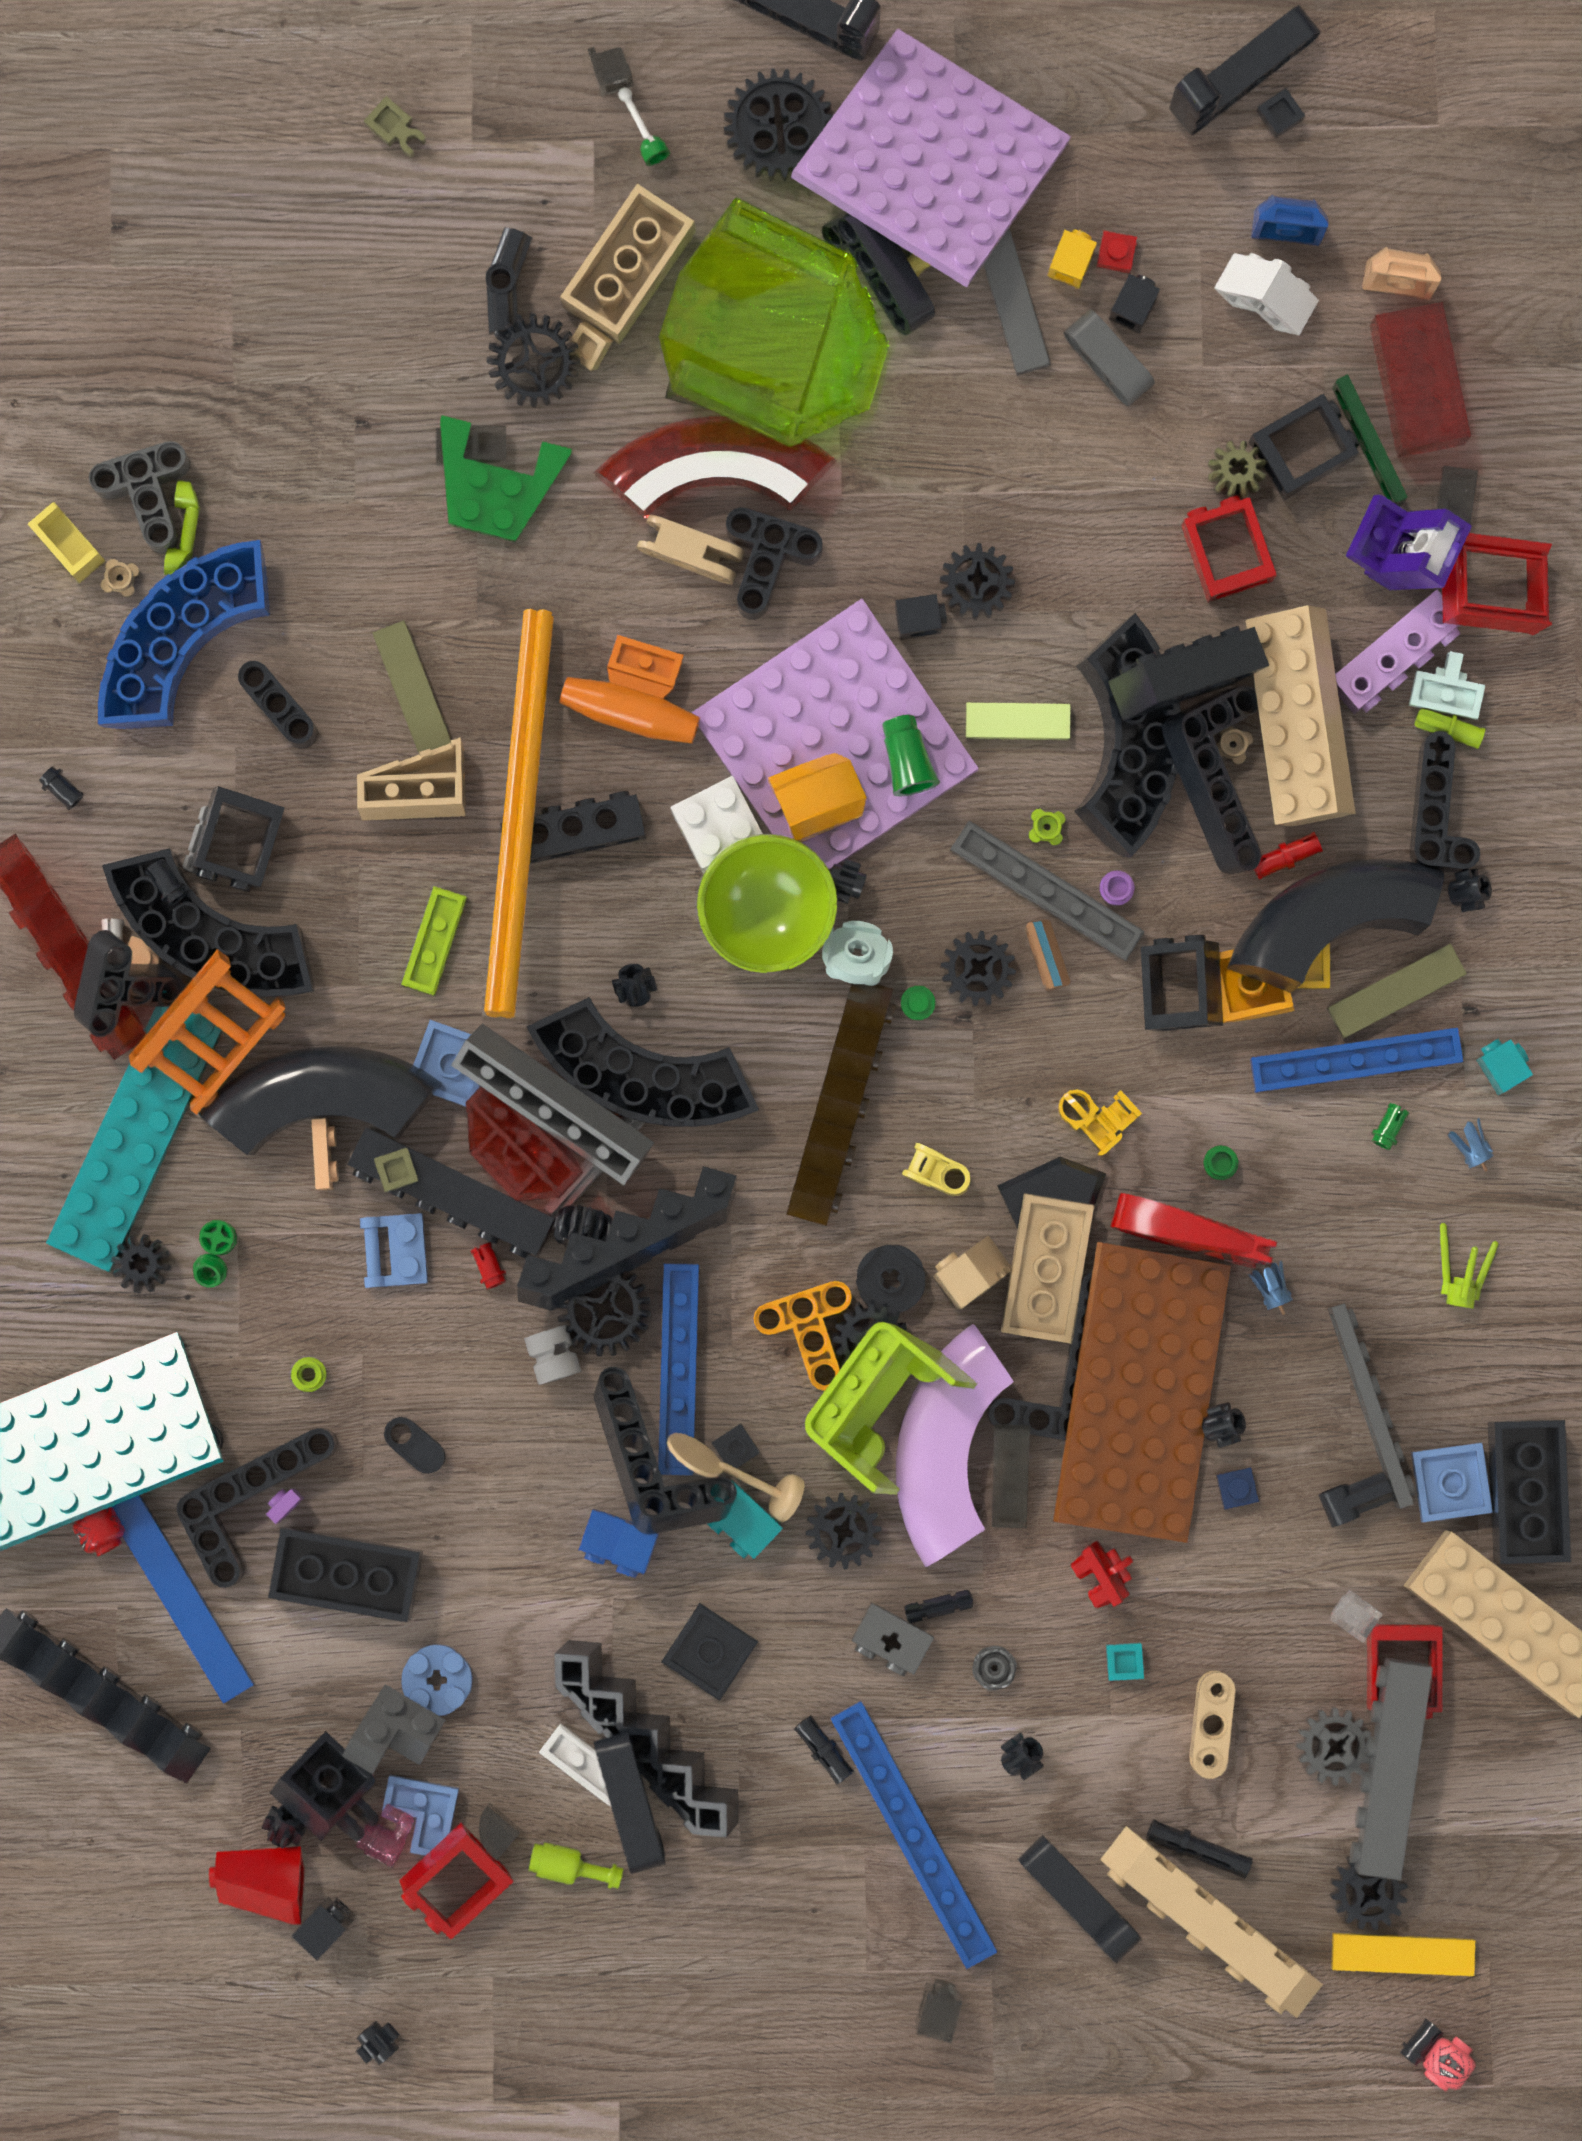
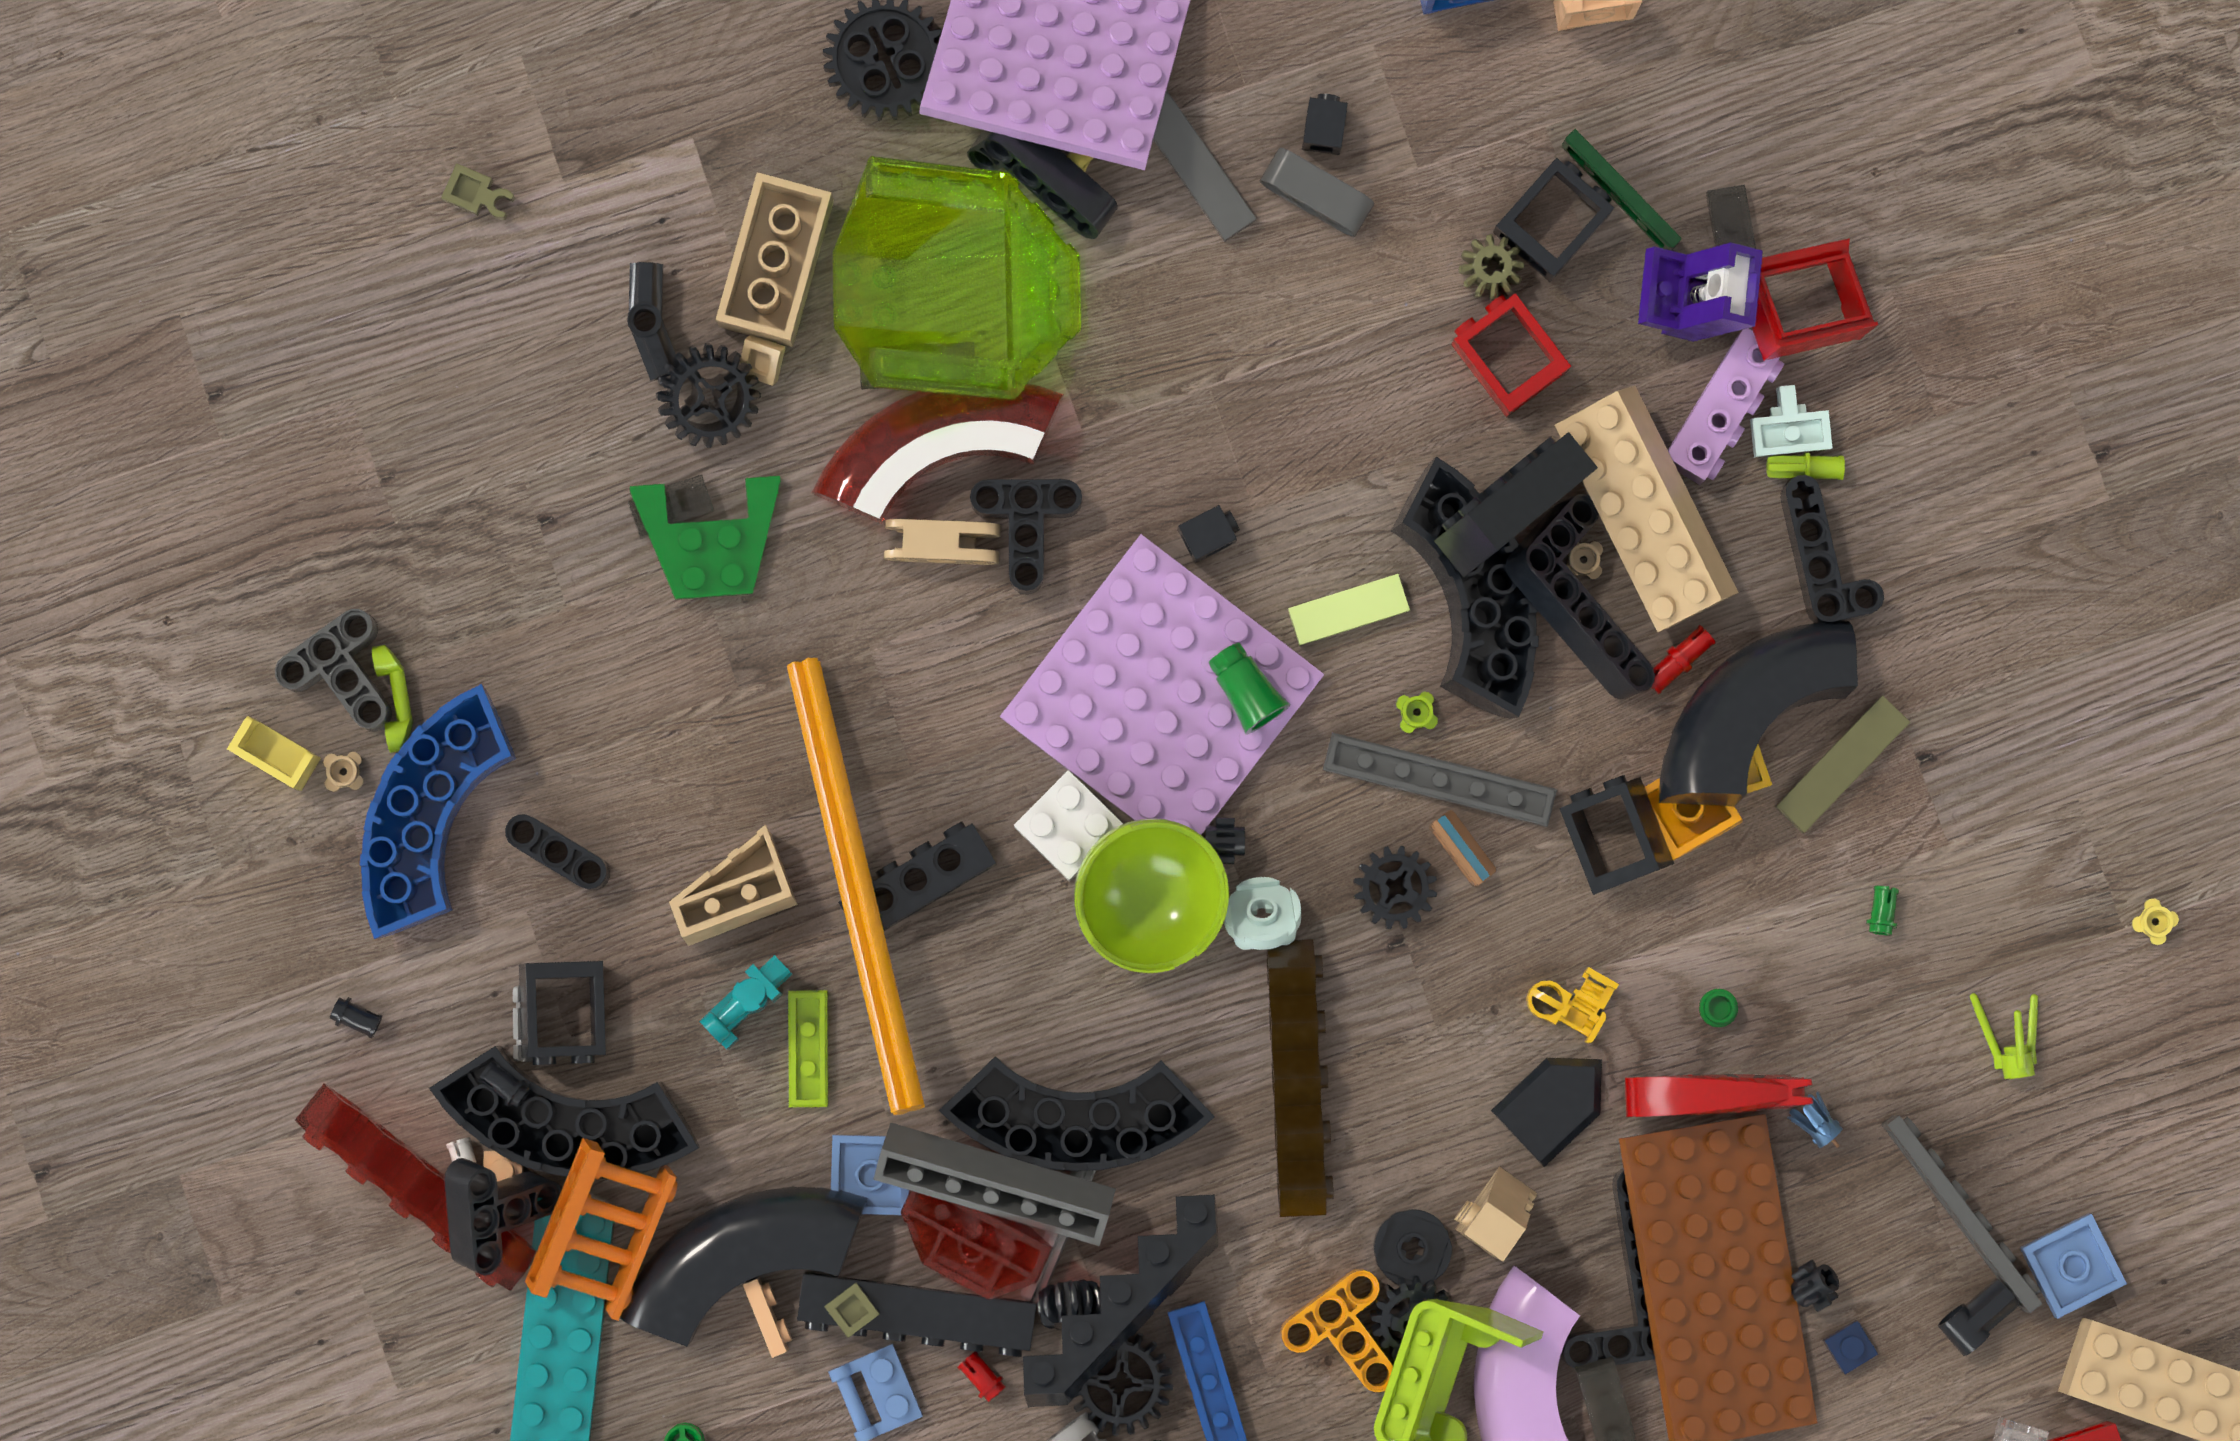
camera: 25 degrees left, 0 degrees up
(395, 880) = (745, 999): none -> teal hips
(411, 687) = (694, 787): olive tile -> none
(610, 70) = (686, 57): clear smoke panel -> none
(634, 985) = (1037, 1026): black gear -> none
(635, 693) = (934, 715): orange plate -> none
(653, 148) = (759, 126): hinge -> none
(819, 795) = (1166, 760): light orange slope -> none
(918, 1003) = (1343, 944): green plate -> none
(935, 1170) = (1420, 1117): light yellow piece -> none
(991, 581) = (1273, 470): black gear -> none
(1047, 1268) = (1574, 1182): tan plate -> none
(1072, 258) = (1243, 98): yellow brick -> none
(1116, 251) = (1287, 76): red plate -> none
(1116, 888) = (1512, 752): medium lavender plate -> none
(1268, 290) = (1461, 67): white brick -> none
(1356, 1060) = (1824, 852): blue plate -> none
(1420, 379) = (1652, 108): clear red brick -> none
(1469, 890) = (1884, 633): black gear -> none
(1479, 1151) = (1986, 903): flat silver piece -> none
(1504, 1064) = (1982, 805): teal brick -> none
(1529, 1491) = (2158, 1249): black brick -> none

